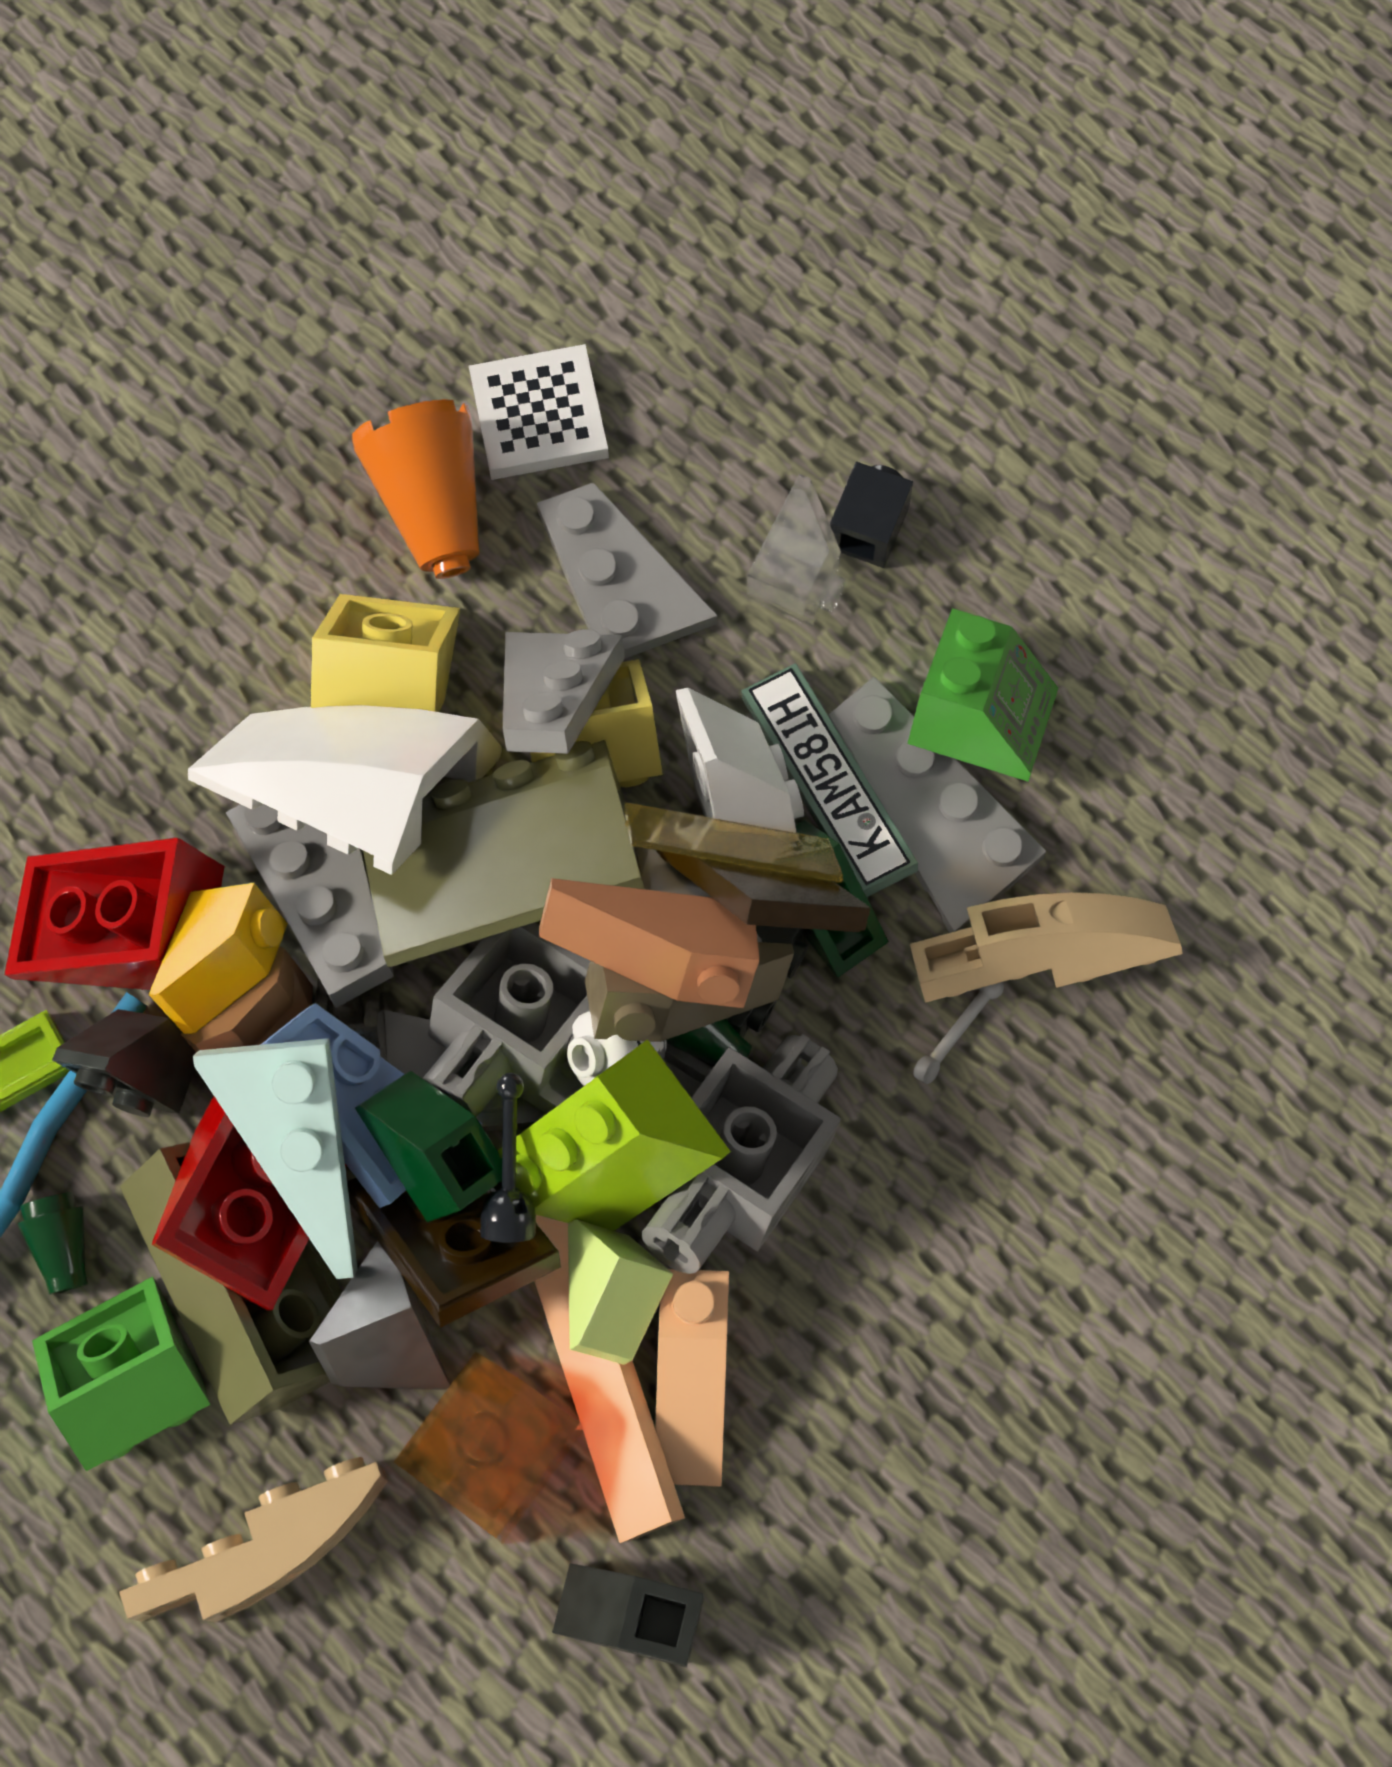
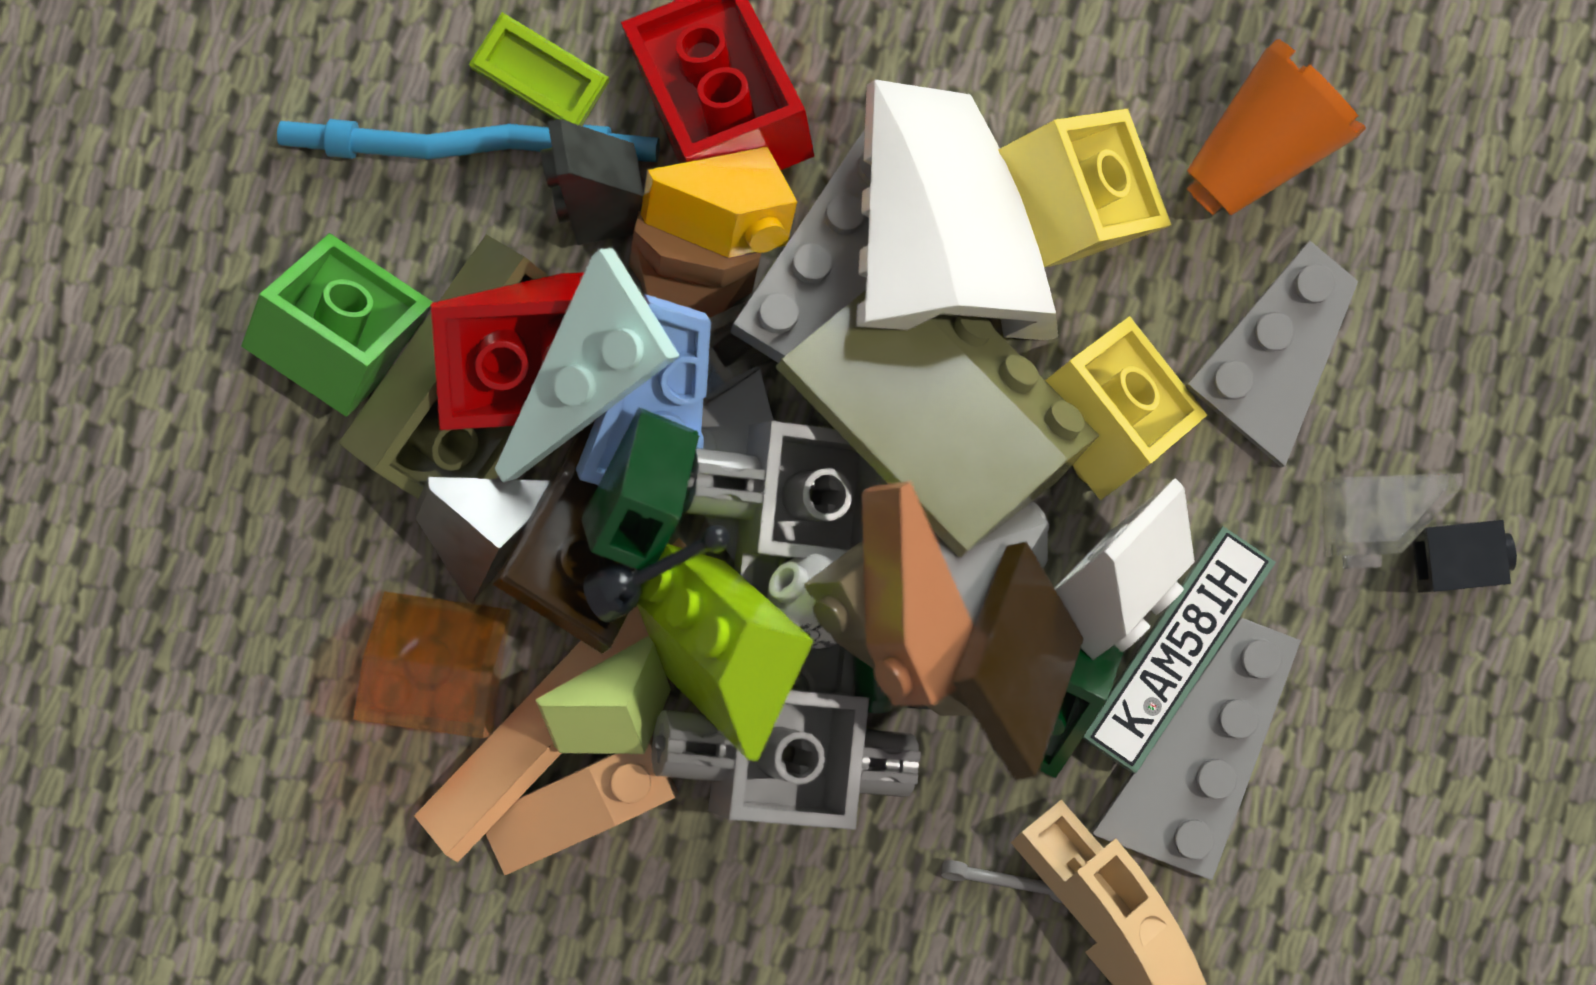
camera: 60 degrees right, 15 degrees up
(56, 1240) = (419, 203): dark green cone -> none
(288, 1538) = (274, 540): tan slope -> none
(538, 412) = (1406, 190): white tile -> none
(554, 686) = (1126, 361): light grey wing -> none
(629, 1614) = (355, 859): pearl dark grey slope -> none
(731, 842) = (1045, 611): clear yellow piece -> none
(984, 698) = (1327, 755): bright green slope -> none

